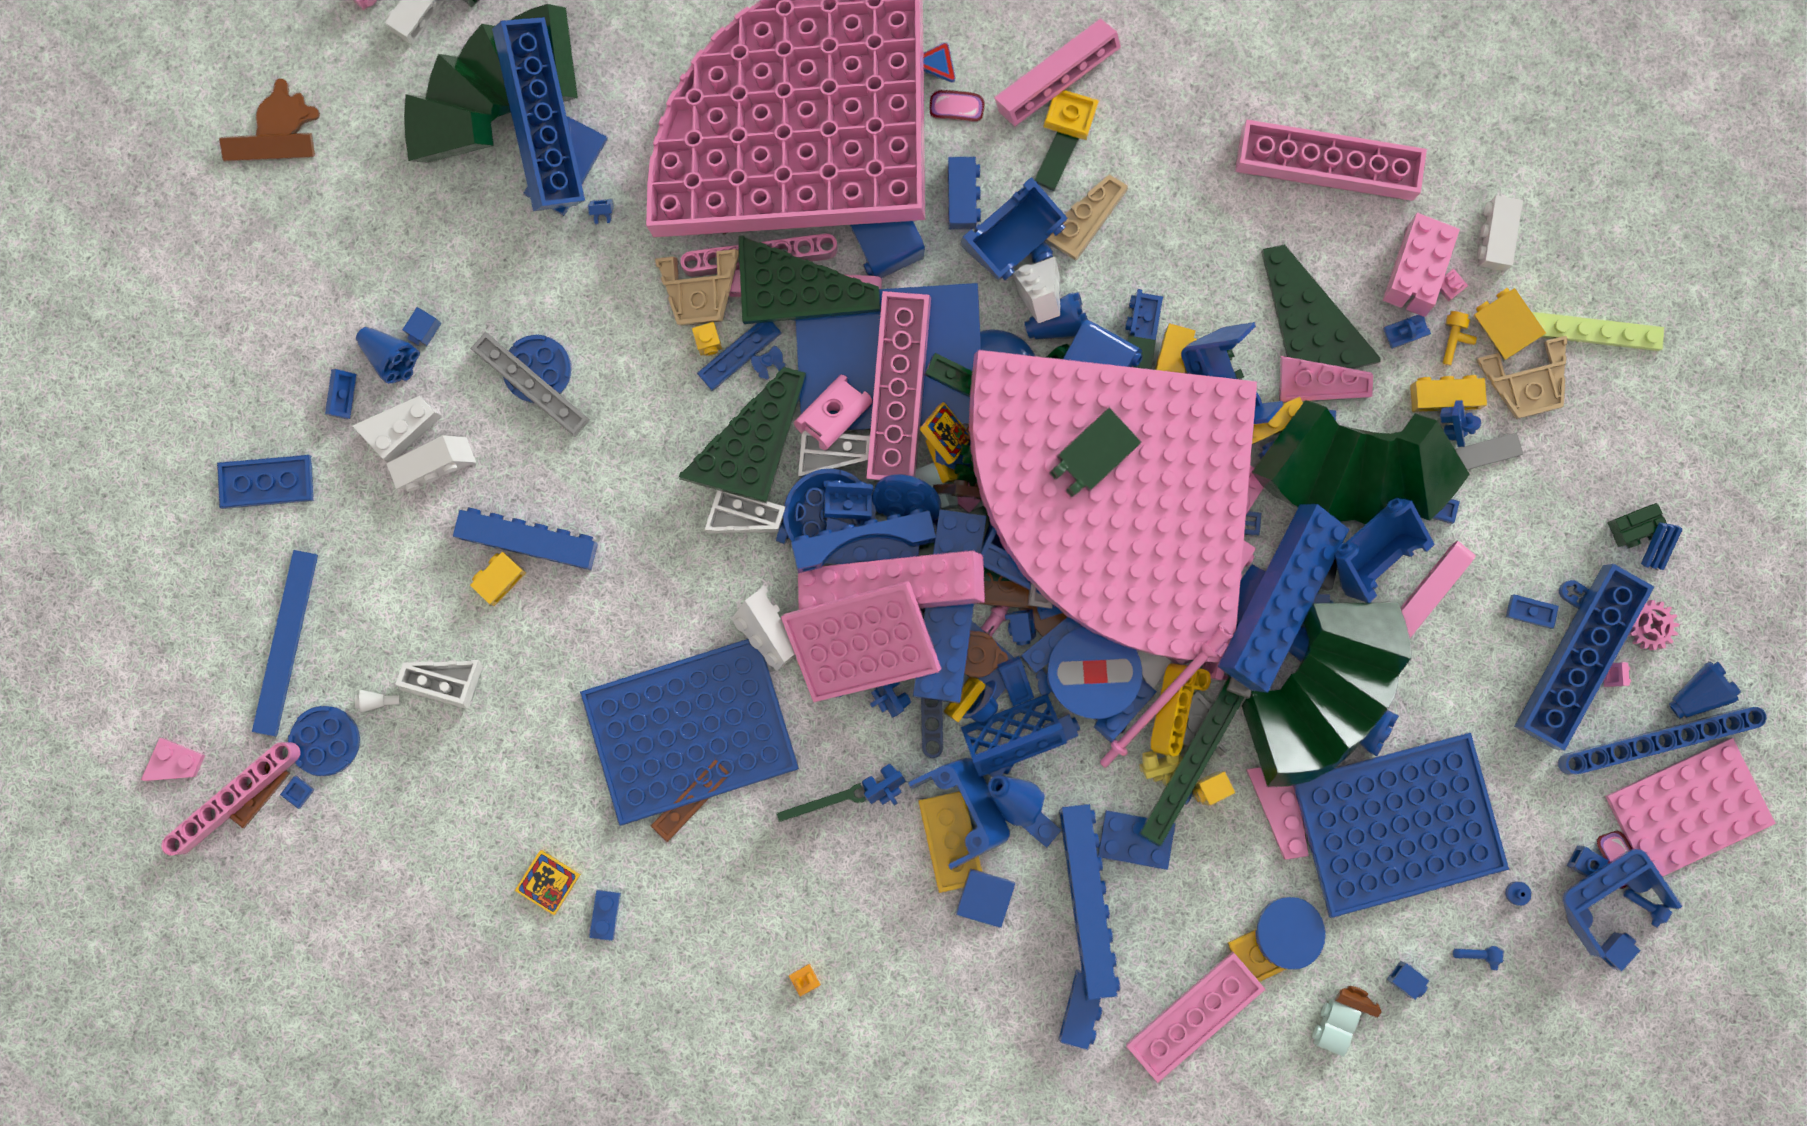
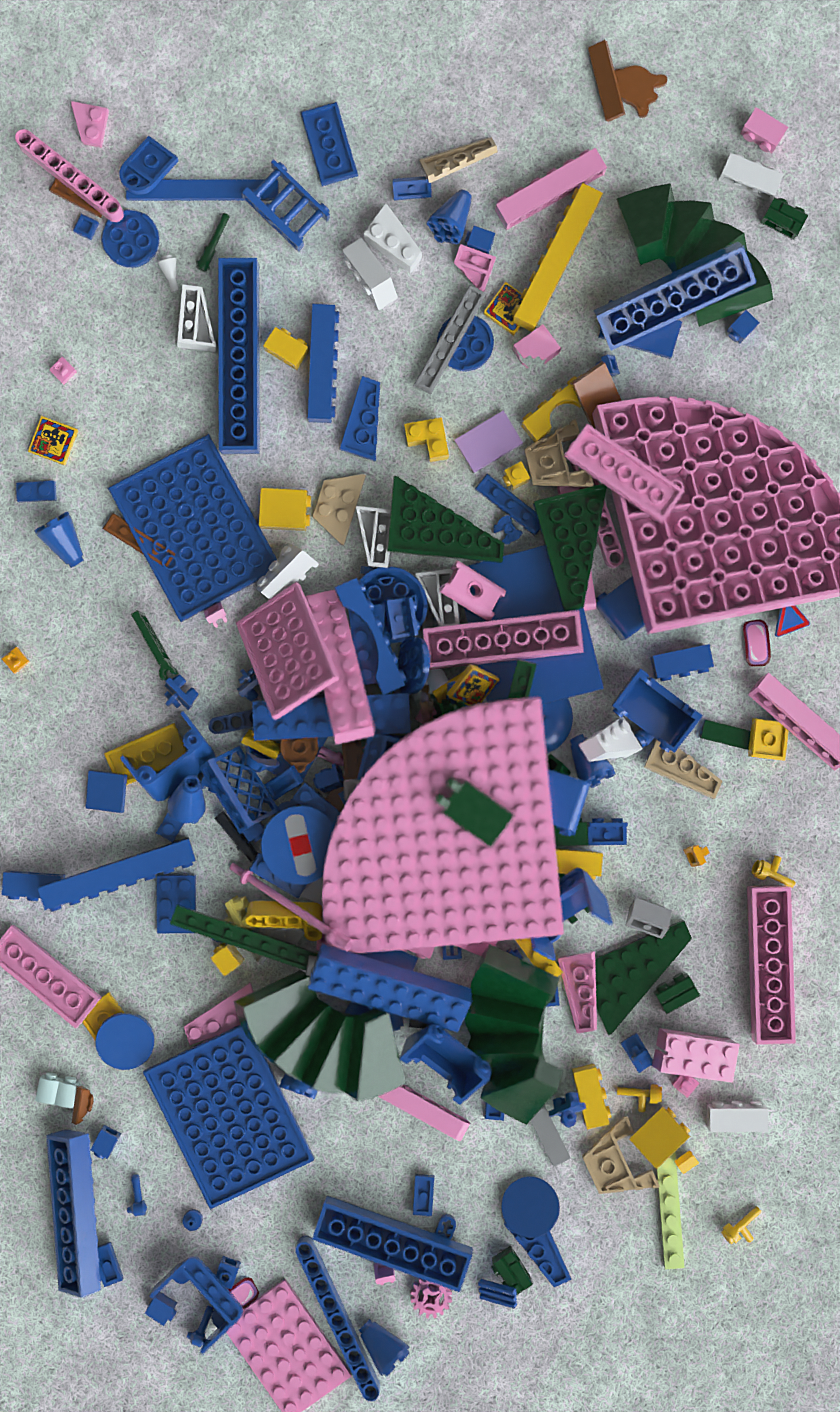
camera: 80 degrees right, 5 degrees up
(240, 701) = (147, 165): none -> blue tile
(320, 343) = (456, 159): none -> tan wing
(328, 568) = (268, 211): none -> blue fence
(360, 648) = (209, 251): none -> dark green pin
(378, 235) = (550, 189): none -> bright pink brick
(449, 339) = (475, 265): none -> bright pink wing
(461, 241) = (557, 257): none -> yellow brick
(465, 854) = (62, 370): none -> bright pink tile
(495, 635) = (239, 355): none -> blue brick
(508, 309) = (502, 306): none -> tile
(558, 284) = (537, 344): none -> bright pink piece
(589, 49) = (742, 327): none -> blue brick
(609, 507) = (362, 425): none -> blue wing
(626, 251) = (538, 423): none -> yellow arch
(627, 227) = (595, 389): none -> dark orange tile
(636, 427) = (430, 433): none -> yellow brick
(659, 364) = (488, 441): none -> lavender tile
(670, 892) = (62, 539): none -> blue cone
(689, 617) = (284, 509): none -> yellow brick
(697, 554) = (338, 504): none -> tan wing
(733, 208) = (624, 473): none -> bright pink plate
(796, 724) = (214, 613): none -> bright pink tile
(1073, 748) = (238, 838): none -> black pin
(1189, 220) = (696, 855): none -> light orange tile
(1220, 147) = (763, 869): none -> yellow piece
(1252, 287) = (648, 917): none -> light grey brick
(1344, 274) = (676, 993): none -> dark green brick
(1487, 1034) = (73, 1212): none -> blue brick
(1542, 300) = (686, 1162): none -> yellow tile
(1555, 1007) = (109, 1265): none -> blue plate
(1566, 488) = (530, 1207): none -> blue tile
(1606, 489) = (546, 1256): none -> blue wing
(1633, 265) = (731, 1233): none -> yellow piece

